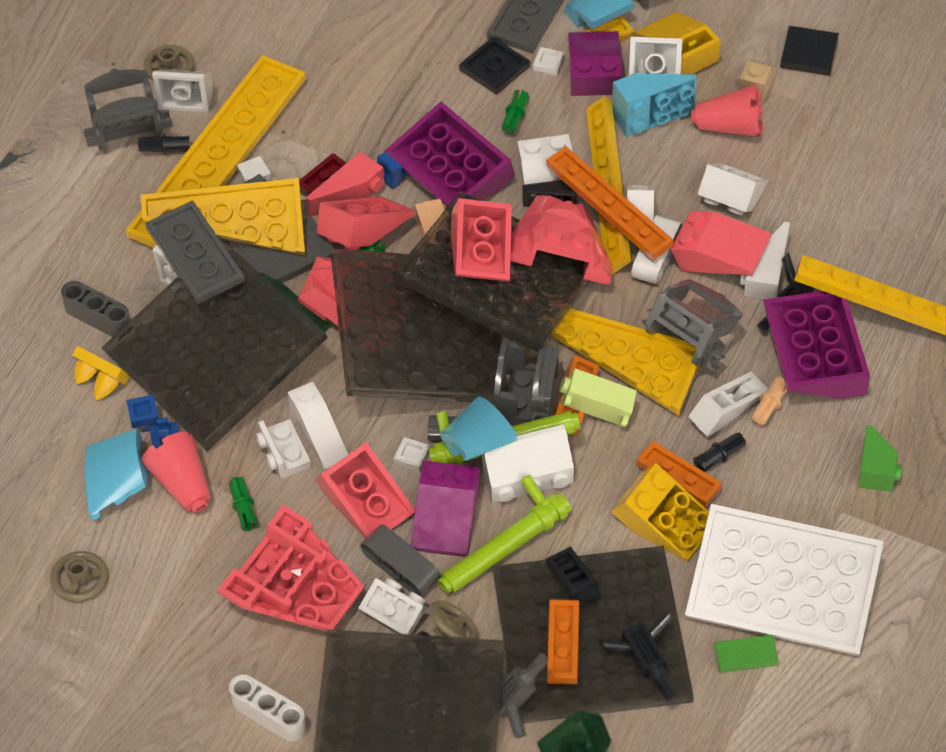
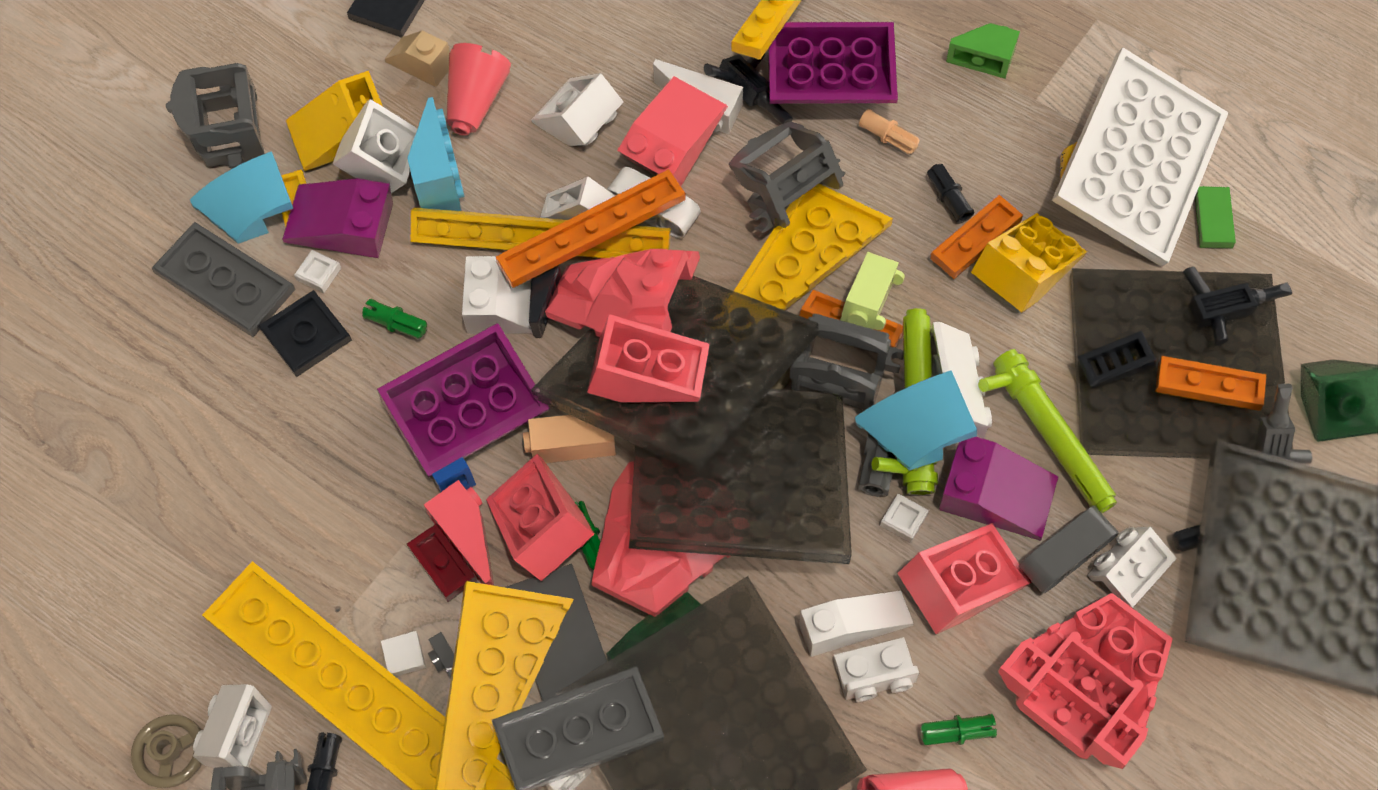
camera: 80 degrees left, 10 degrees up
(272, 719) = (1287, 725): white beam -> none
(449, 625) = (1171, 505): dark tan piece -> none
(726, 403) = (892, 172): white slope -> none

